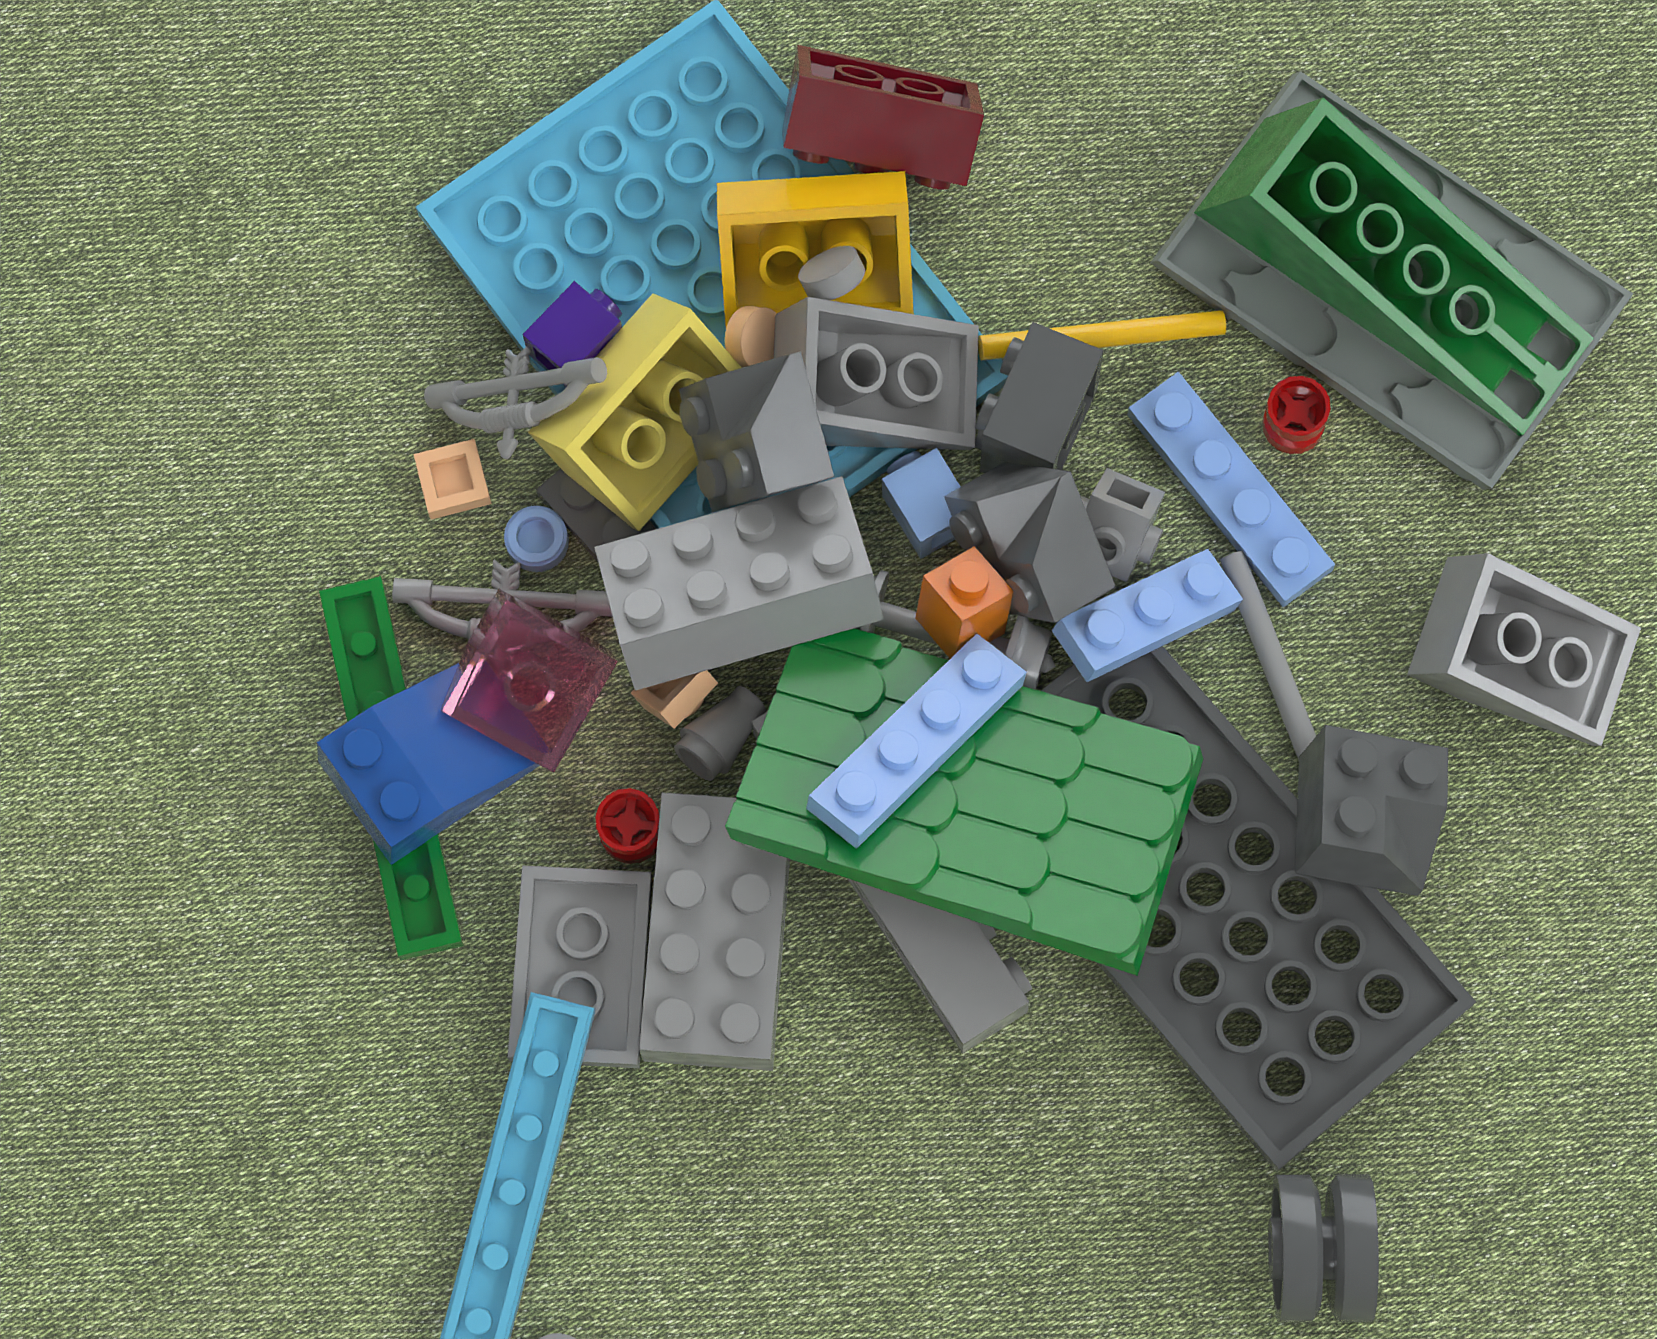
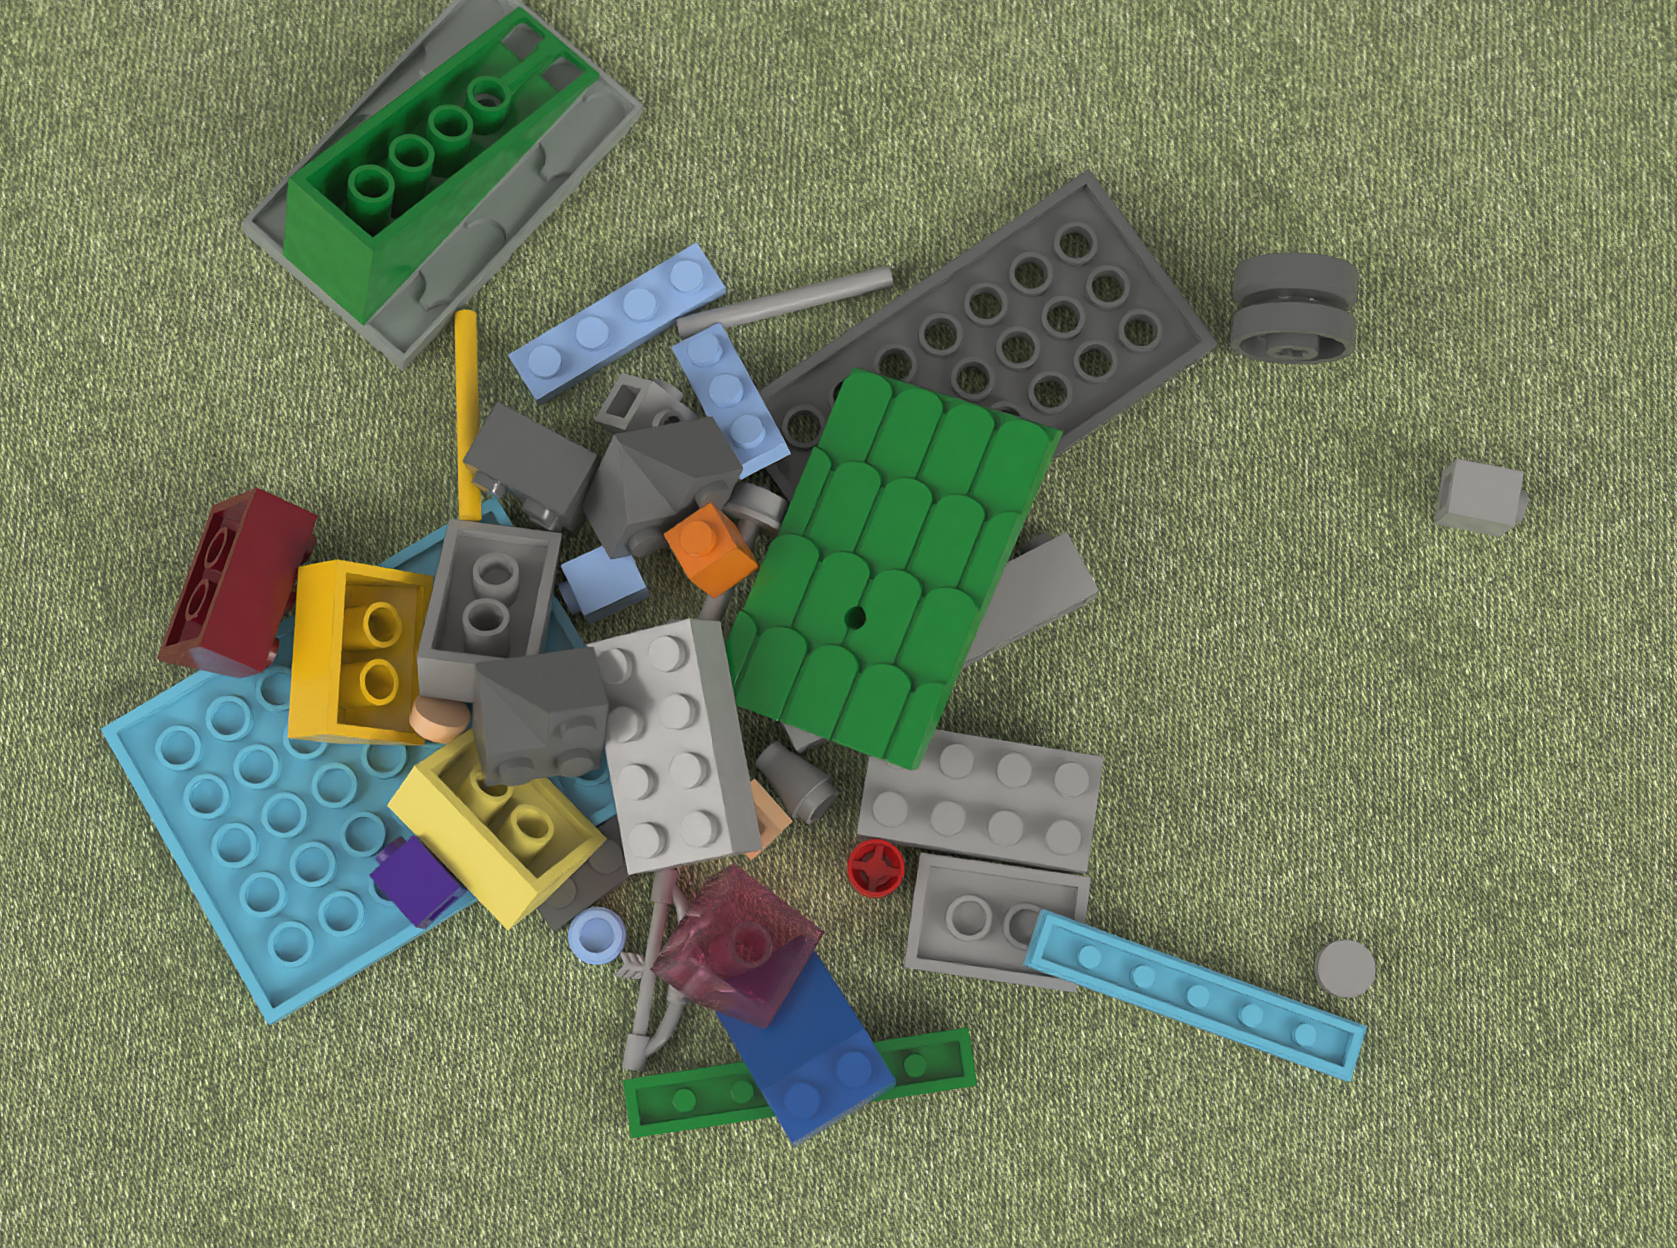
camera: 90 degrees left, 5 degrees up
(452, 479) = (535, 1008): light nougat plate -> none
(514, 416) = (490, 945): light grey piece -> none
(832, 273) = (393, 636): light grey tile -> none
(916, 740) = (840, 599): light blue plate -> none
(1296, 402) = (554, 247): red wheel -> none
(1370, 809) = (921, 232): dark grey slope -> none
(1523, 648) = (786, 97): light grey slope -> none

